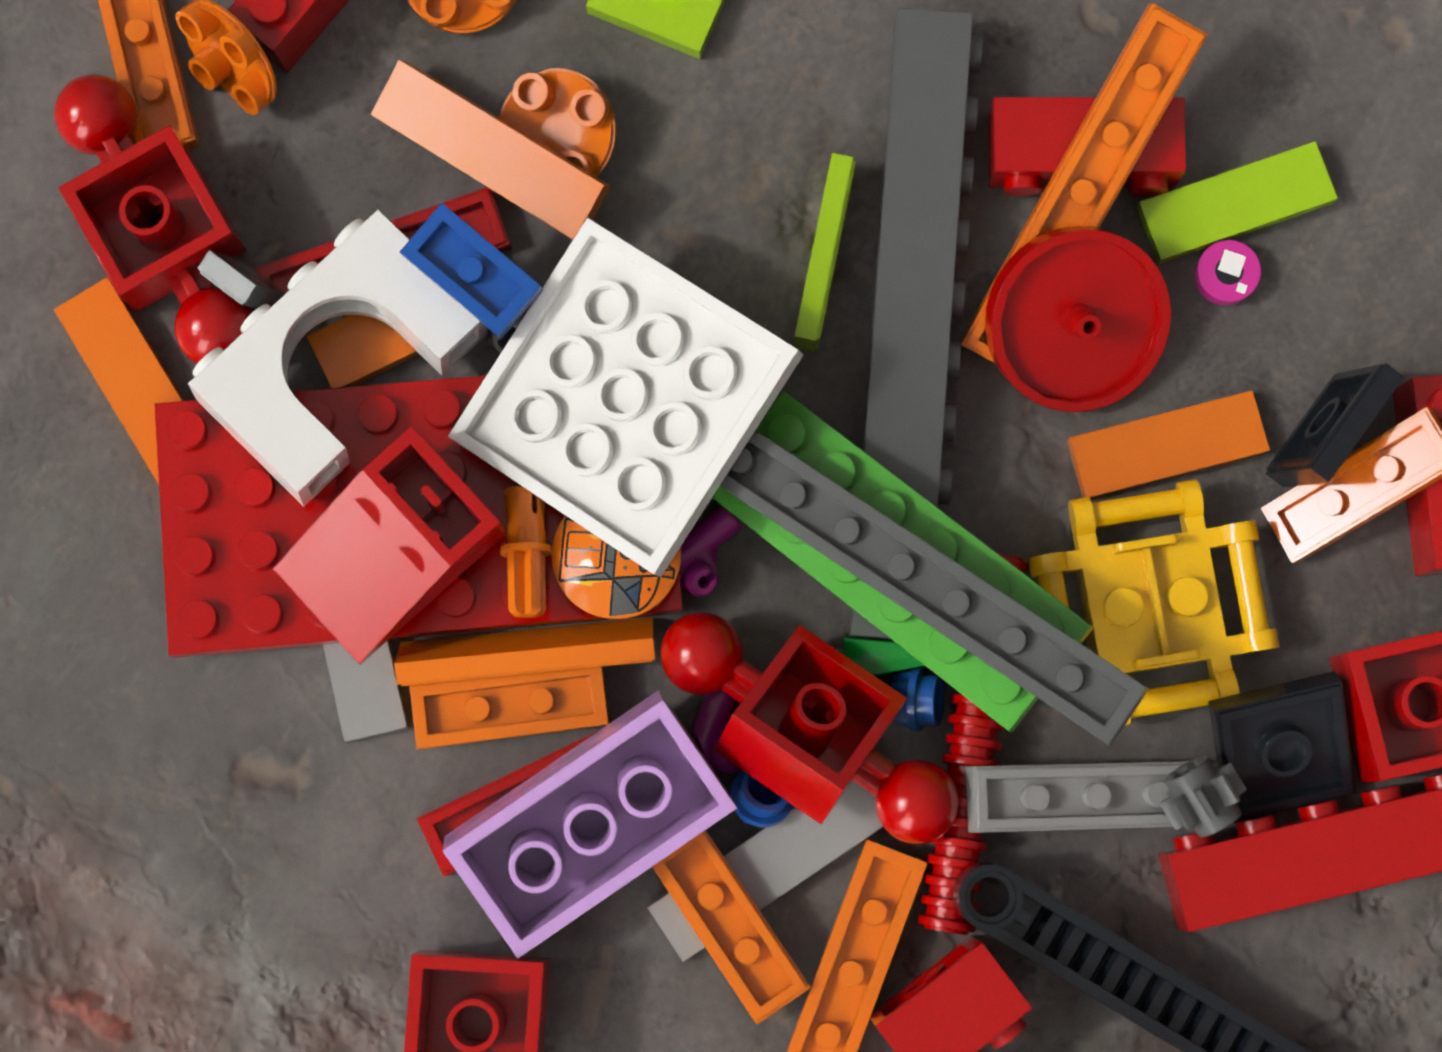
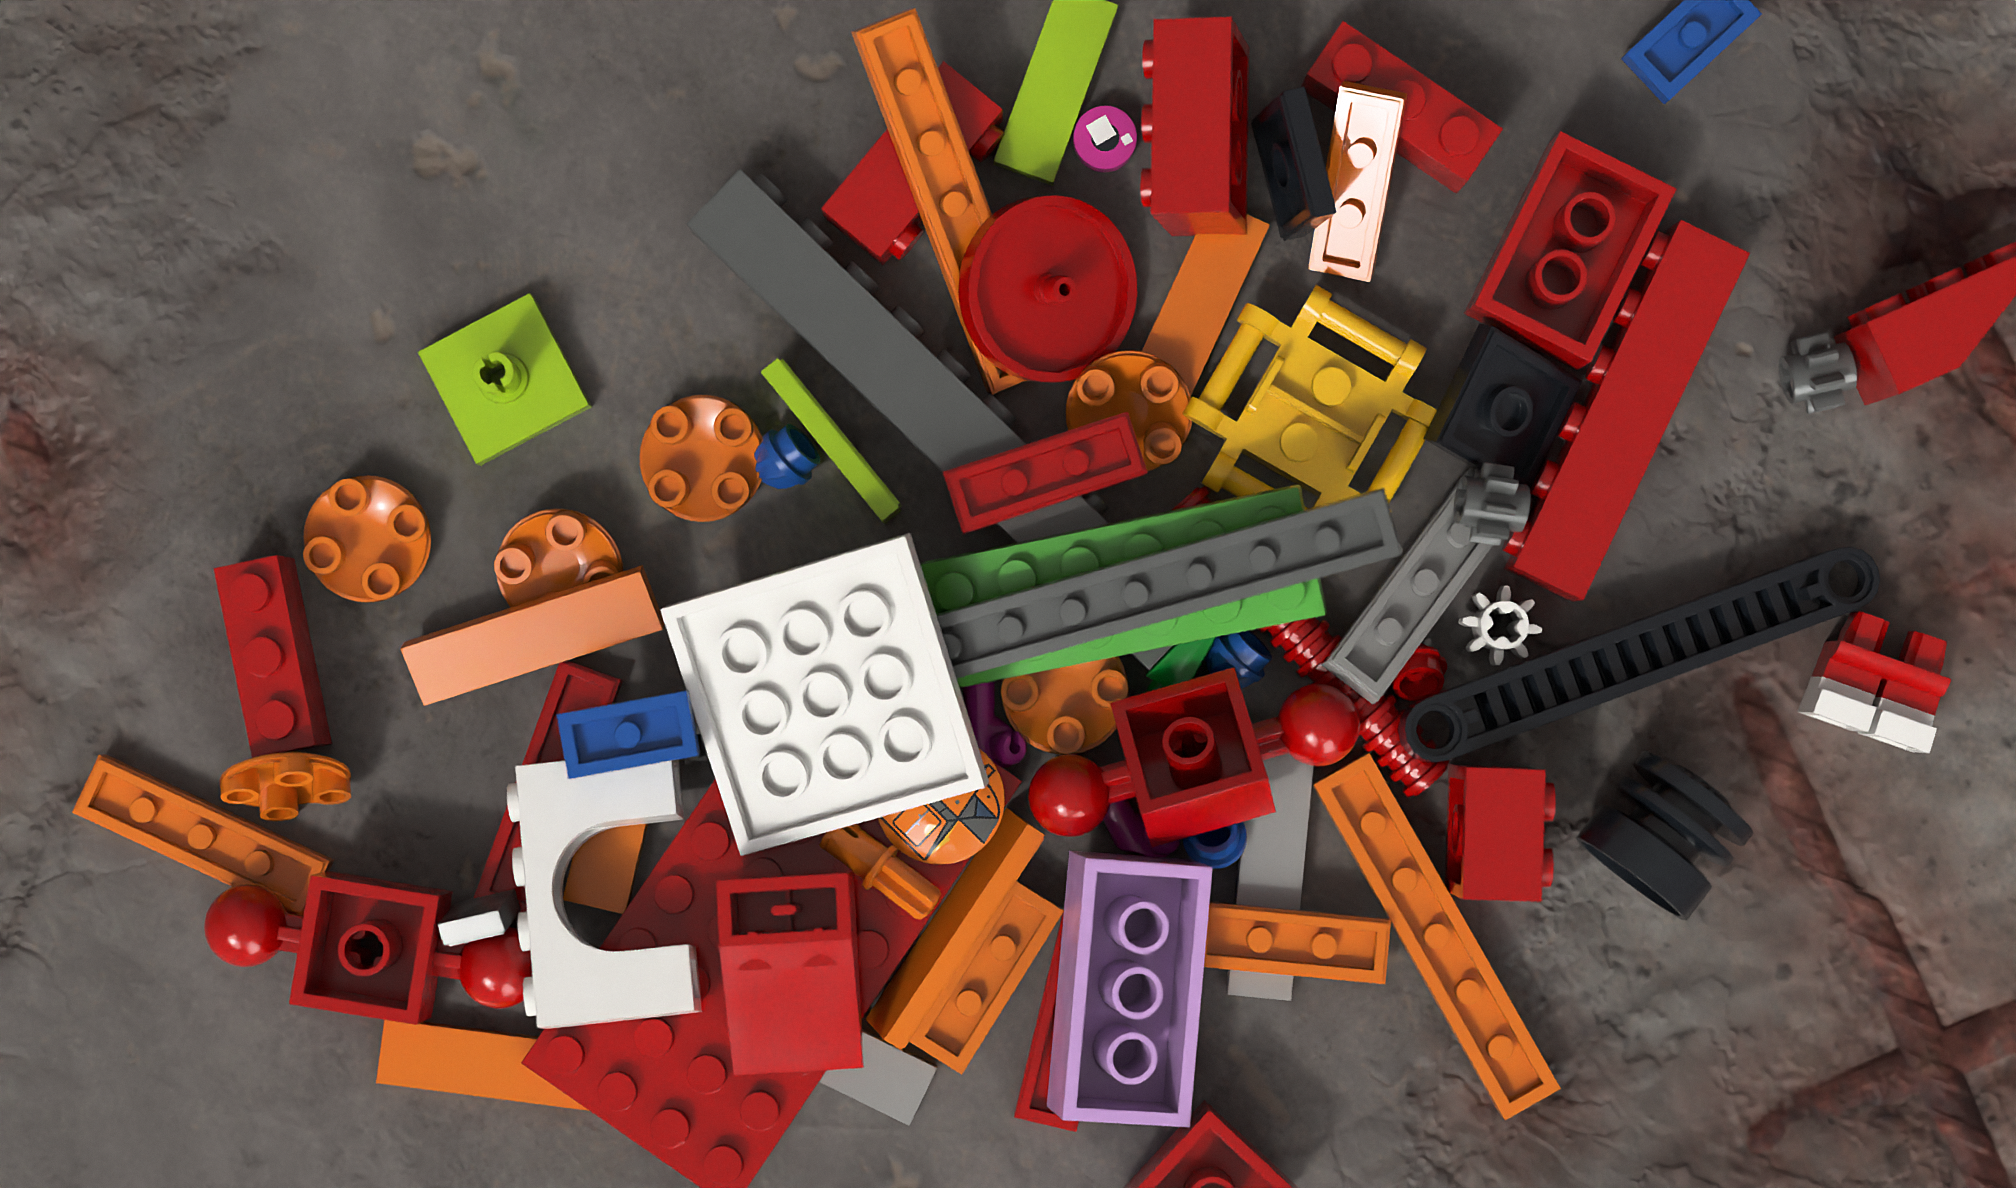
camera: 50 degrees left, 5 degrees up
(729, 168) = (701, 458): none -> orange dish
(770, 594) = (1066, 706): none -> orange dish
(782, 229) = (786, 458): none -> blue plate
(935, 428) = (1045, 472): none -> red tile
(1022, 851) = (1421, 674): none -> red plate
(1034, 460) = (1143, 387): none -> orange dish
(1119, 901) = (1517, 628): none -> white gear
(1300, 327) = (1197, 126): none -> red brick

